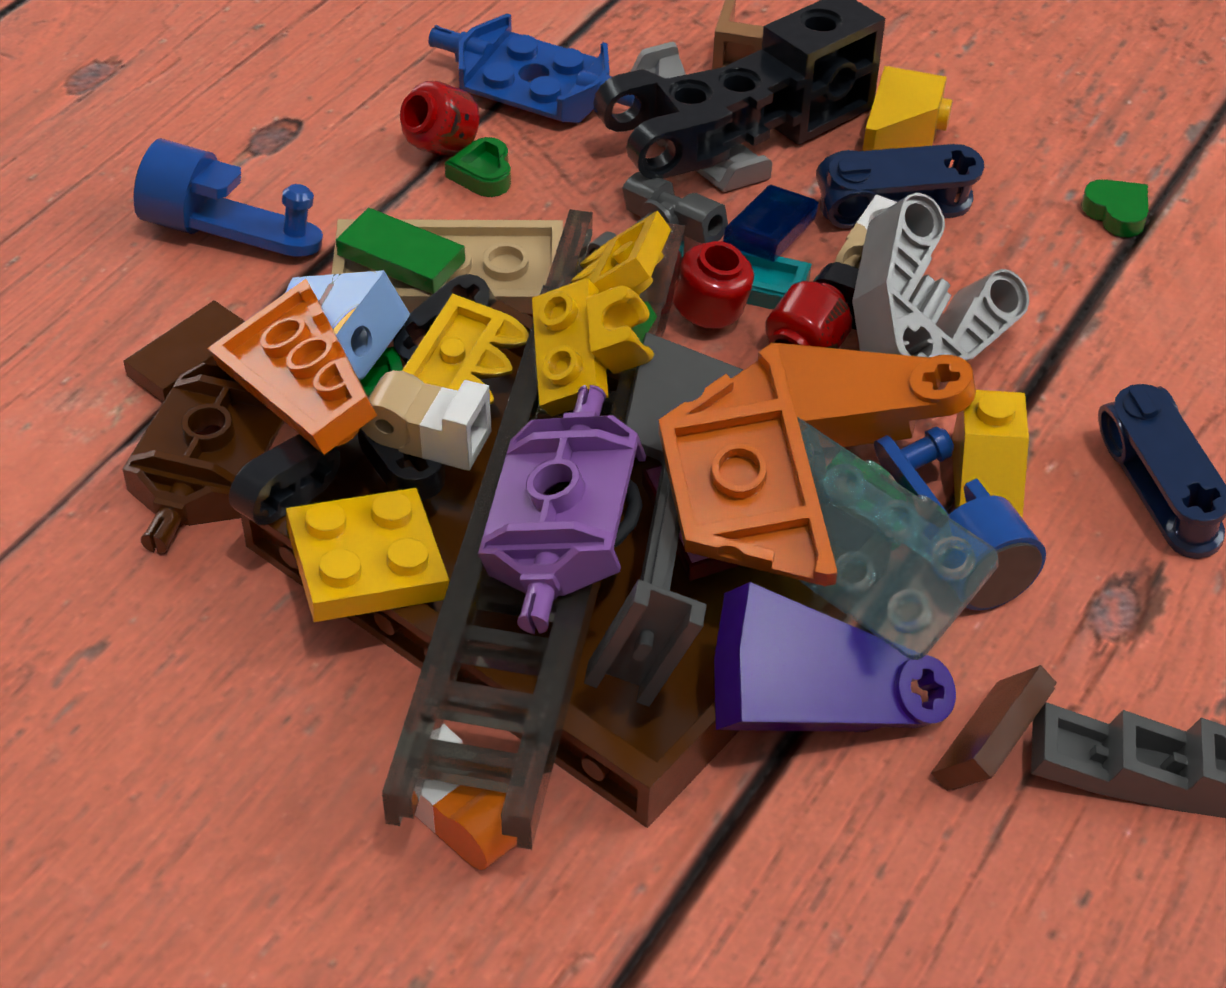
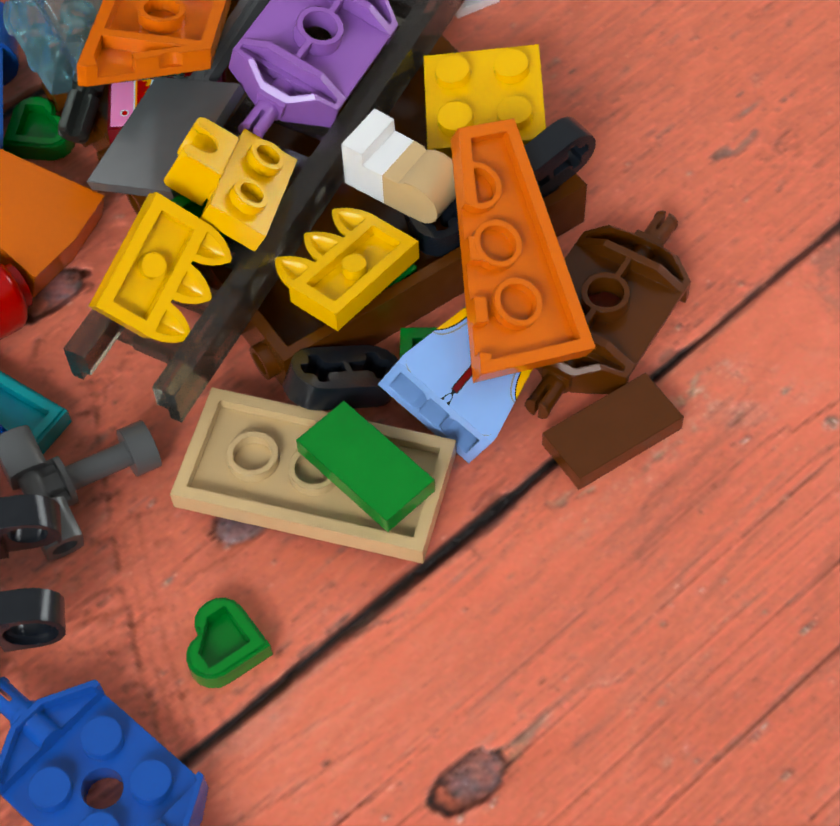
camera: 160 degrees left, 10 degrees up
(187, 191) = (590, 623): blue piece -> none
(439, 118) = (257, 690): red head -> none
(713, 285) = (40, 355): red head -> none

